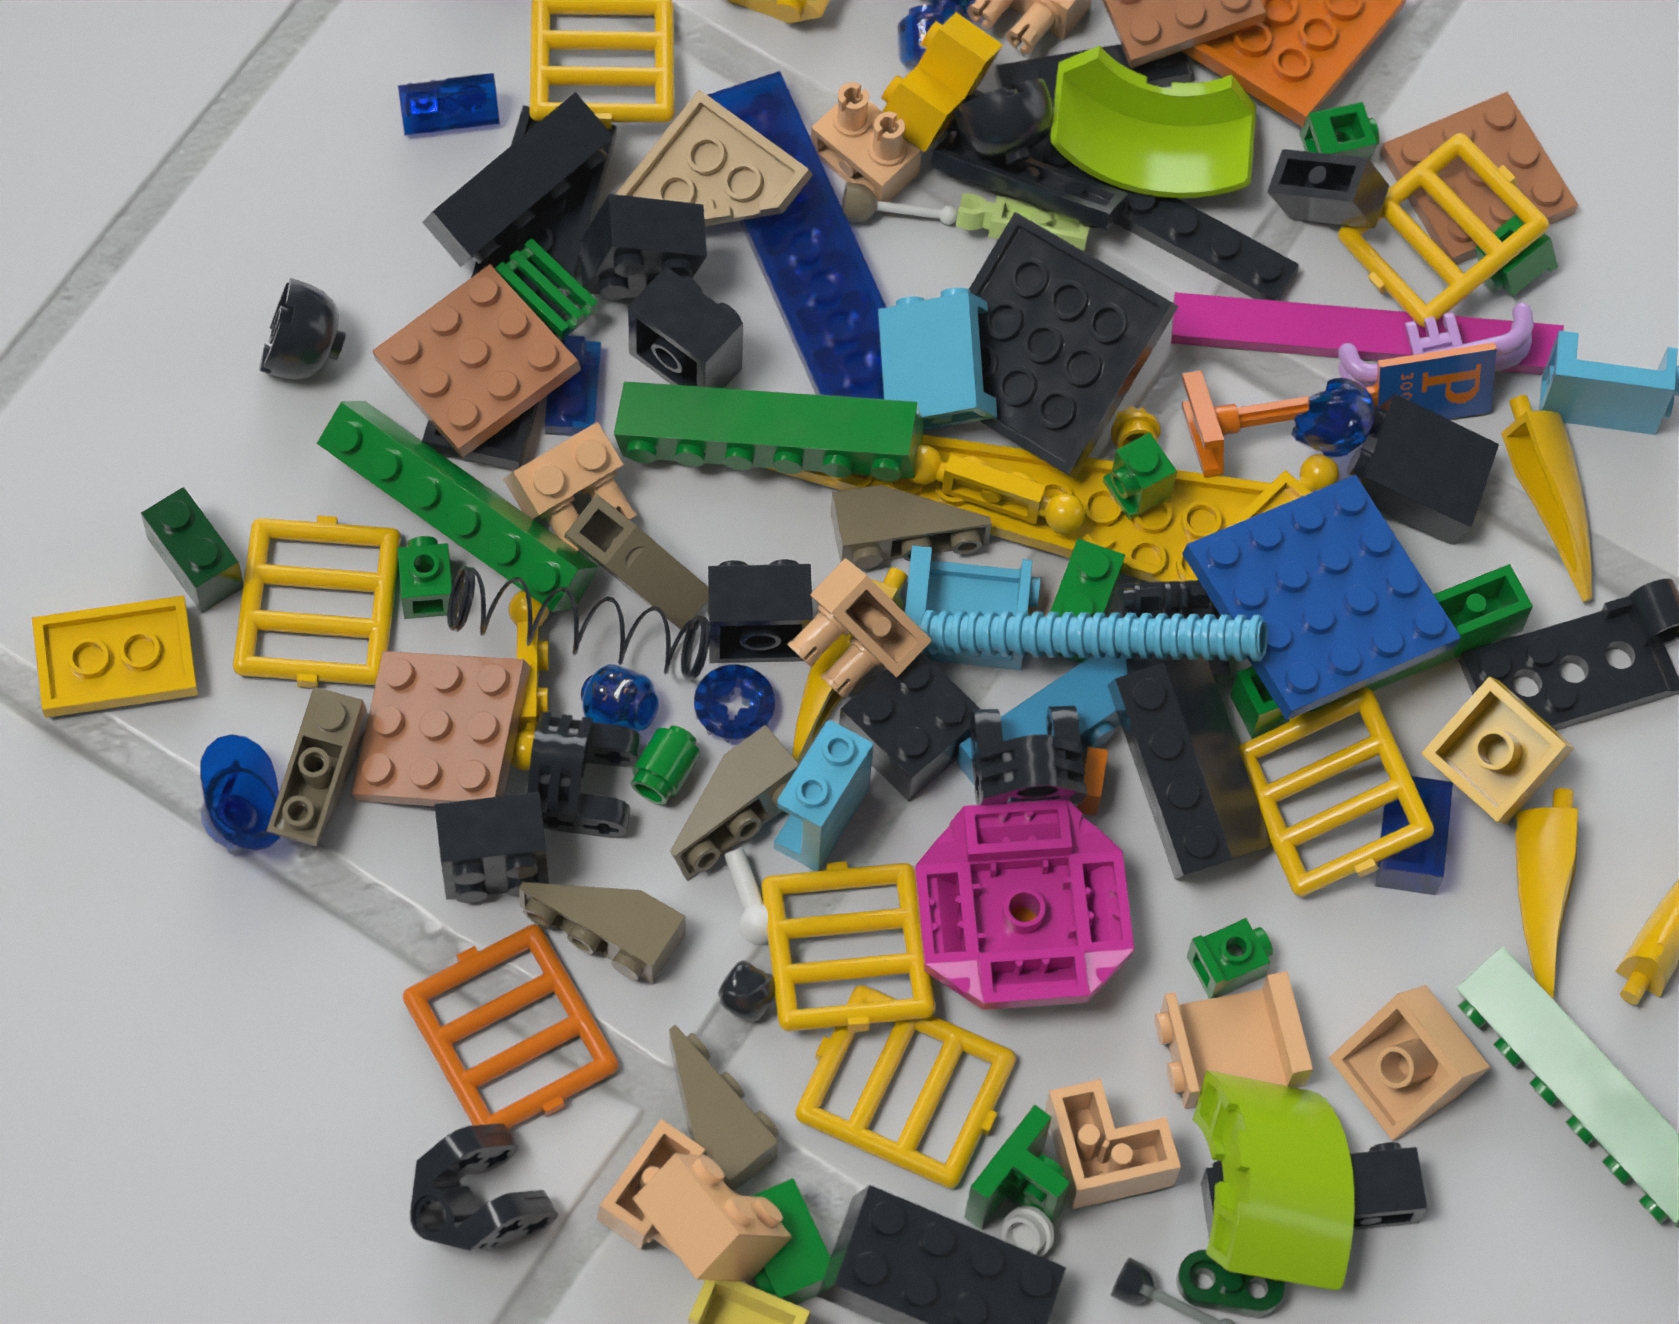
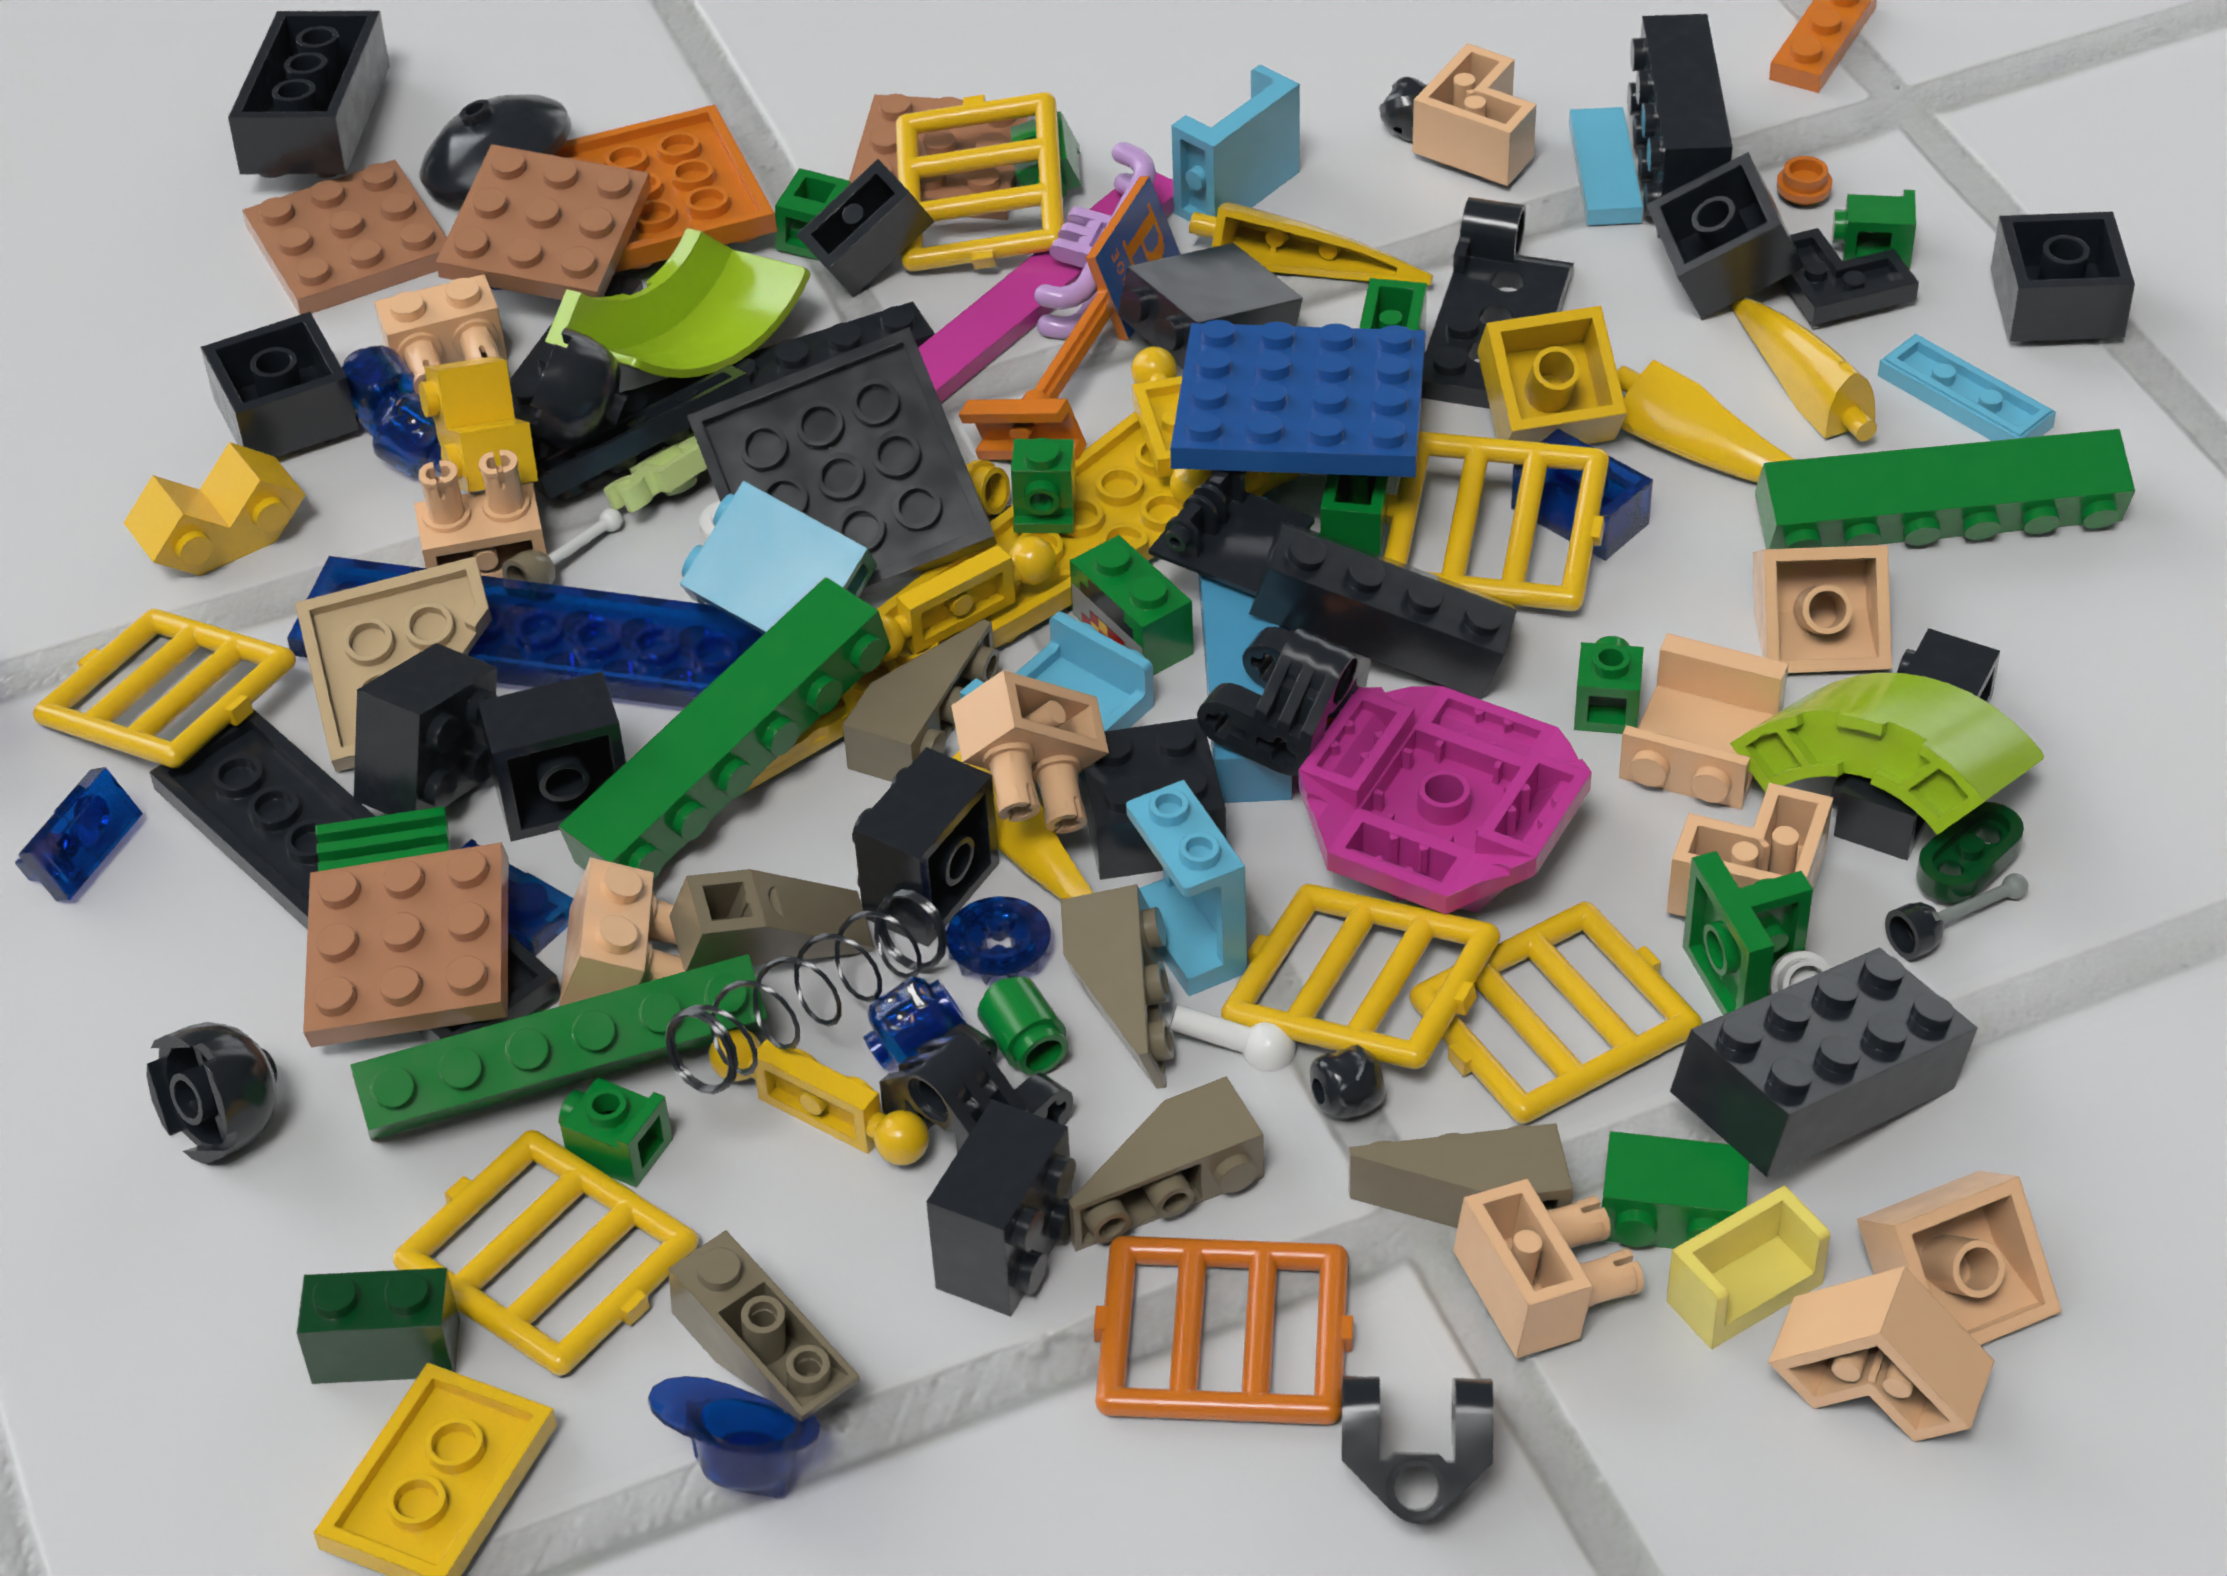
camera: 50 degrees left, 20 degrees down
(440, 728) = (816, 1192): nougat plate -> none
(518, 180) = (243, 797): black brick -> none
(707, 1225) = (1627, 1191): light nougat brick -> none
(1095, 635) = (1212, 559): medium azure piece -> none
(1336, 418) = (1117, 313): clear blue hair -> none

